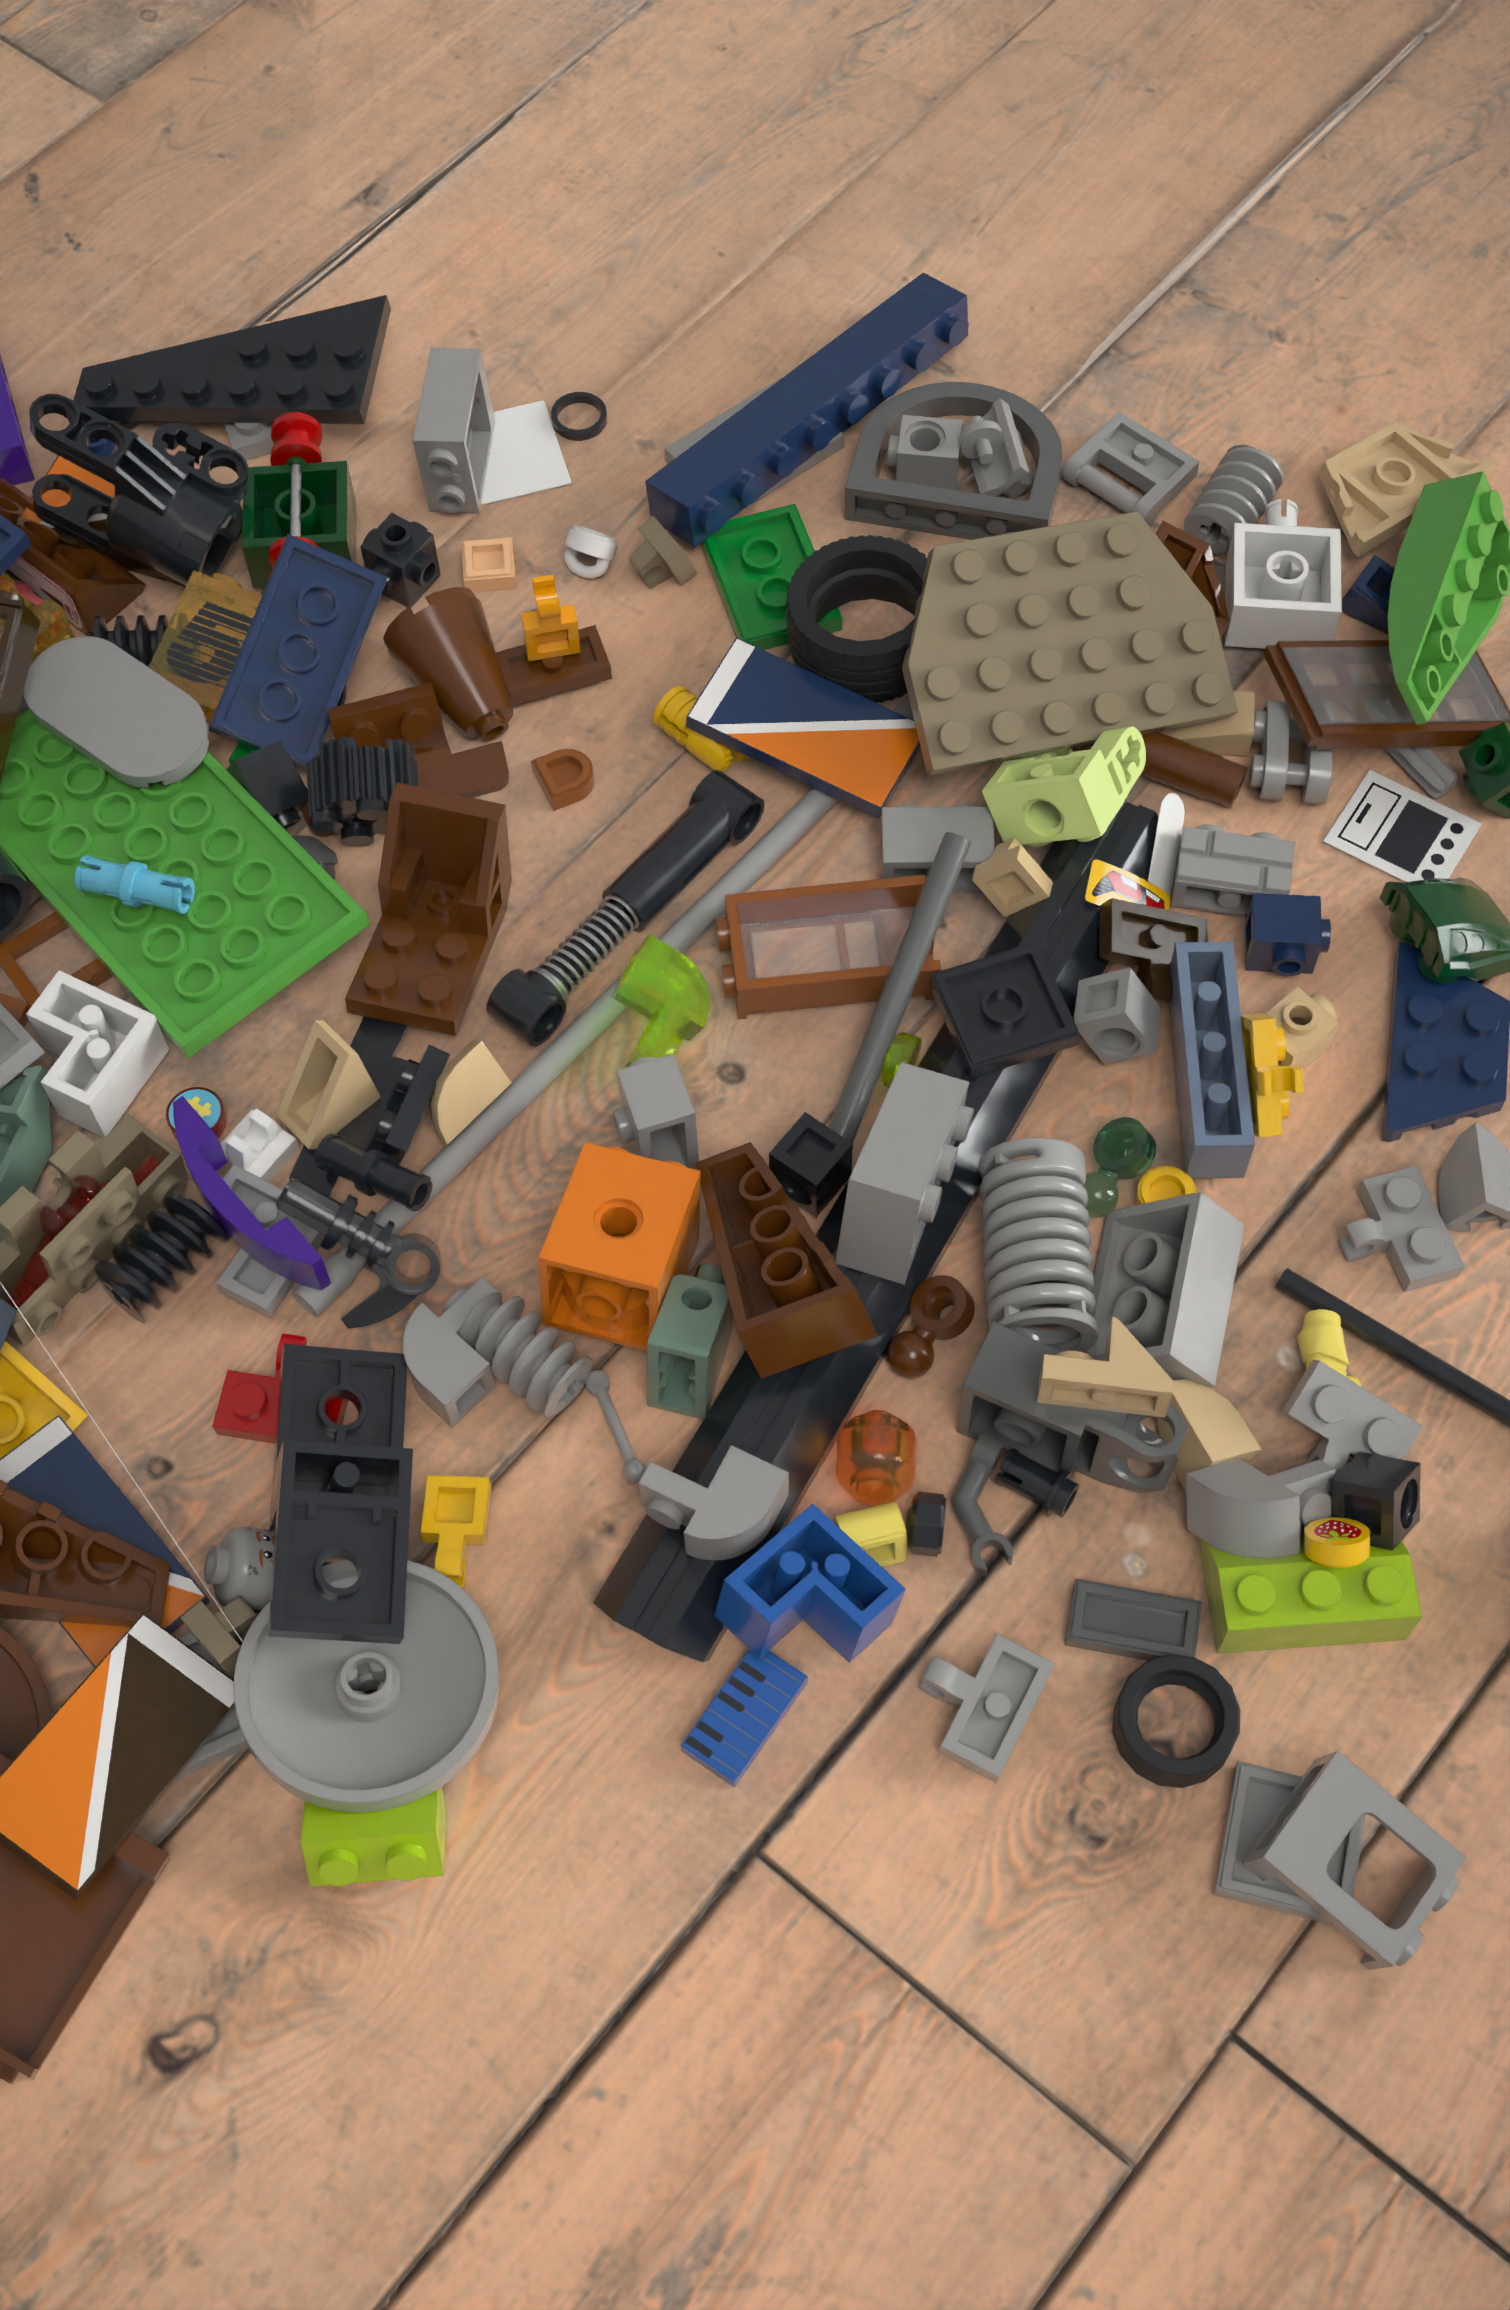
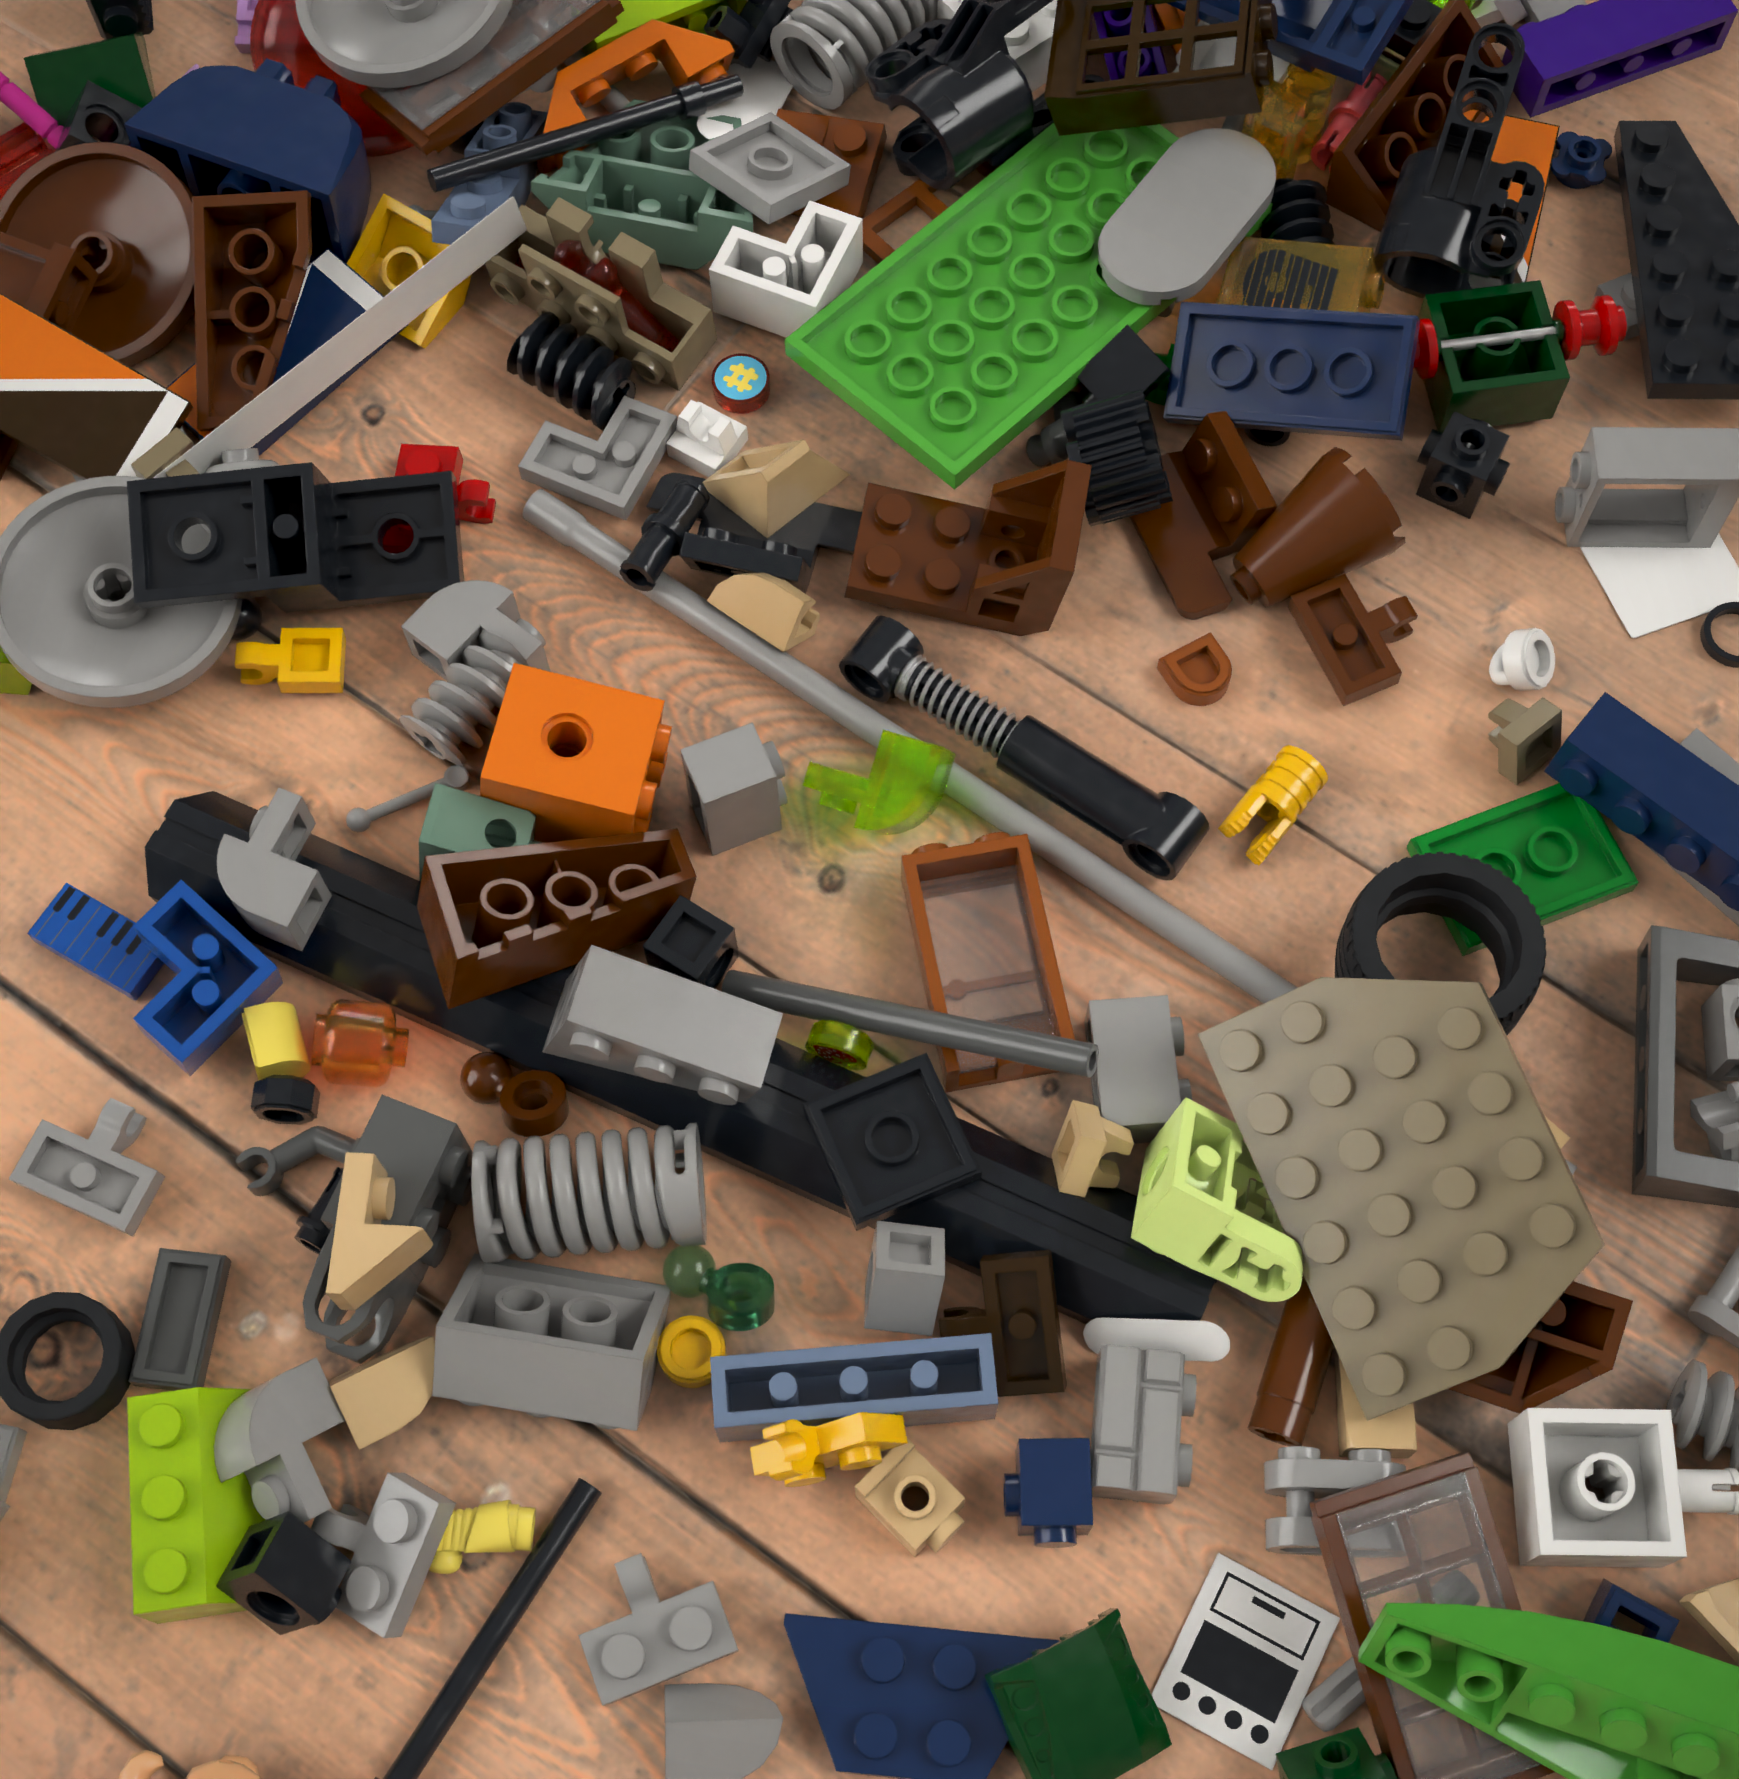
camera: 85 degrees right, 5 degrees up
(134, 884) = (966, 264): medium azure pin -> none
(278, 1248) = (670, 372): dark purple slope -> none
(367, 1238) = (566, 576): black piece -> none
(488, 564) = (1487, 562): light nougat tile -> none
(550, 628) = (1369, 610): light orange plate -> none
(806, 727) = (1275, 897): tile -> none
(1113, 882) = (1080, 1289): sticker -> none
(1337, 1542) = (221, 1518): yellow tile -> none

